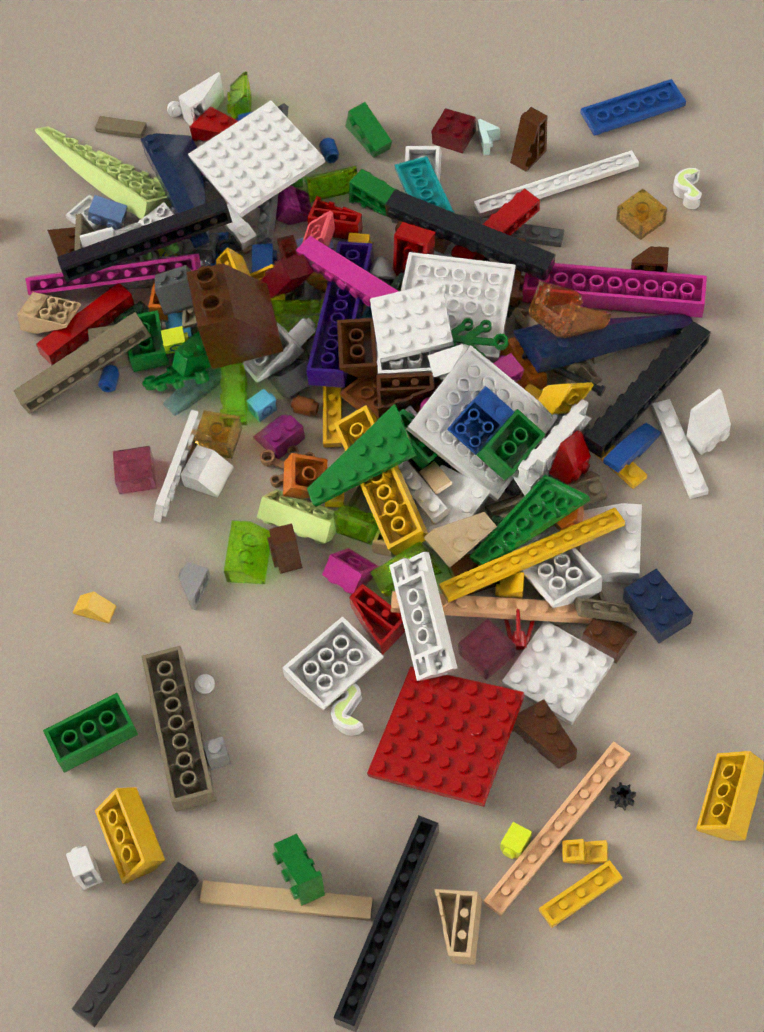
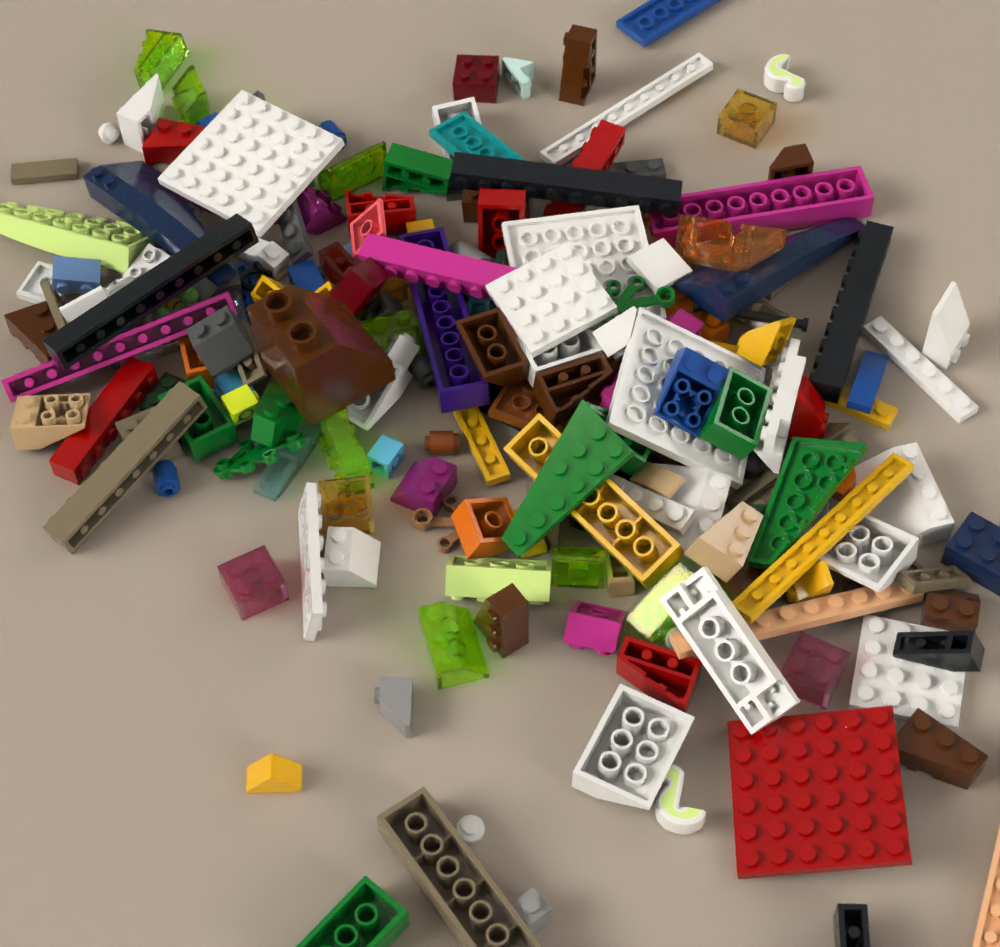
camera: 25 degrees left, 5 degrees down
(232, 58) = (161, 55): none -> clear neon green wedge
(291, 379) = (412, 413): dark grey slope -> none
(368, 130) = (371, 101): green wedge -> none
(508, 315) = (659, 265): none -> white tile
(515, 841) = (965, 896): neon yellow brick -> none
(519, 637) = (845, 641): red plant -> none
(583, 663) = (941, 649): none -> black slope

